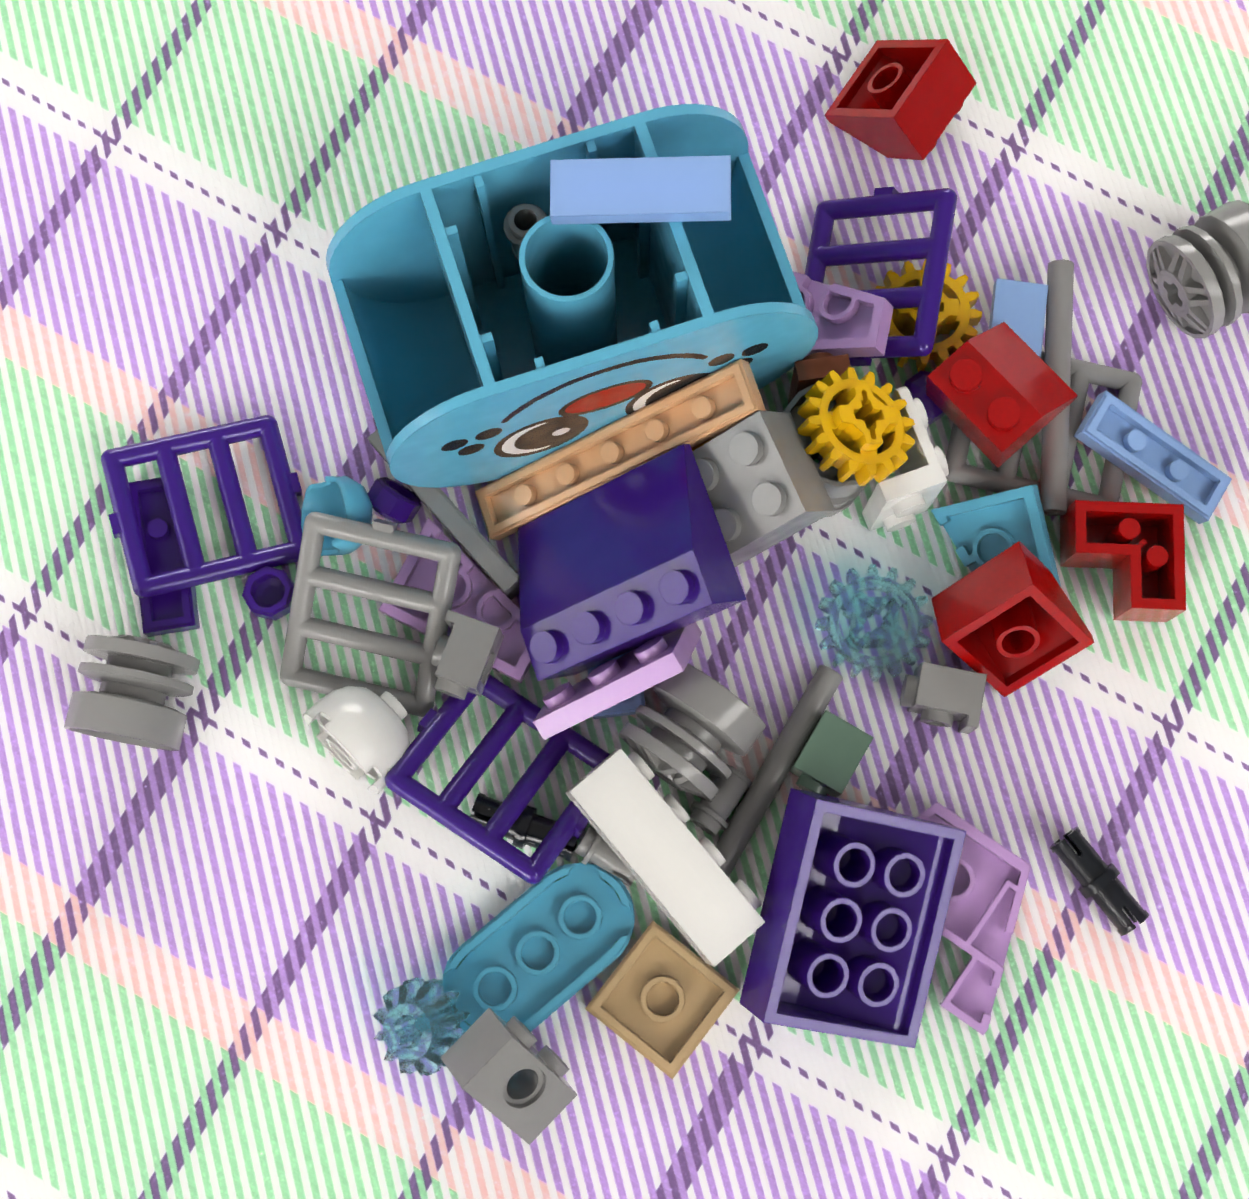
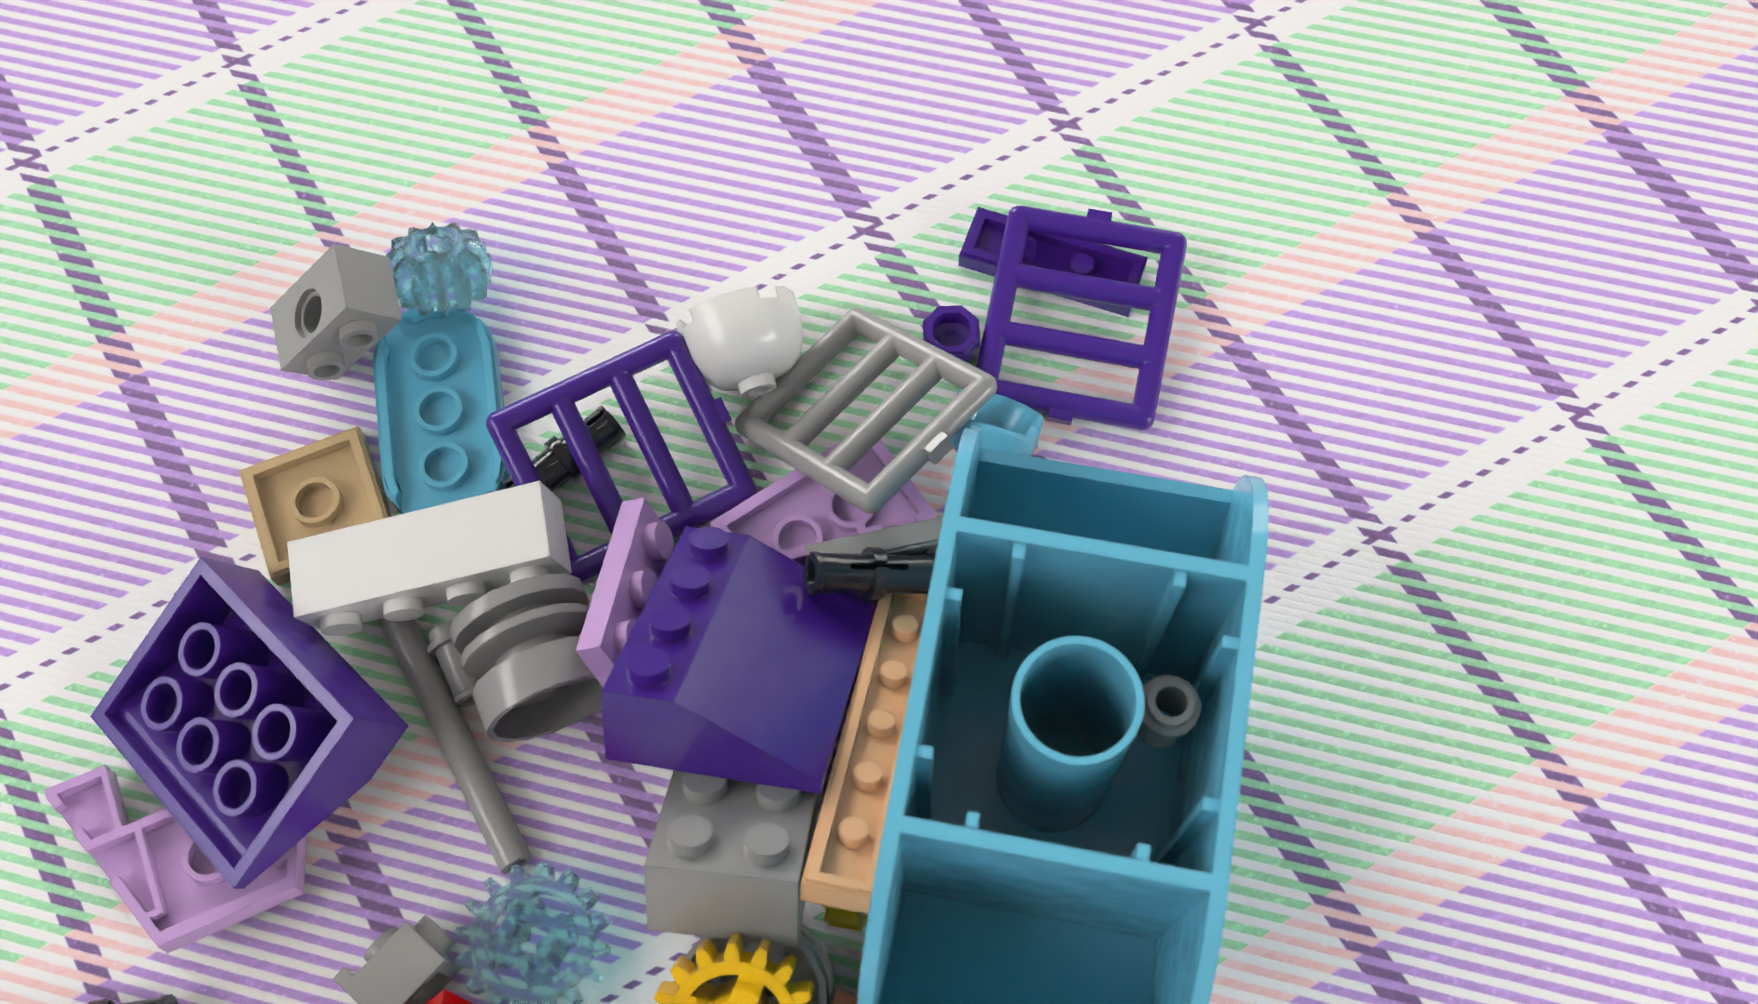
camera: 120 degrees right, 10 degrees down
(132, 692) = (910, 156): light grey wheel -> none
(465, 655) = (760, 472): light grey brick -> none
(515, 551) = (868, 573): none -> black pin
(640, 190) = (1108, 828): light blue tile -> none
(830, 756) = (423, 802): sand green brick -> none

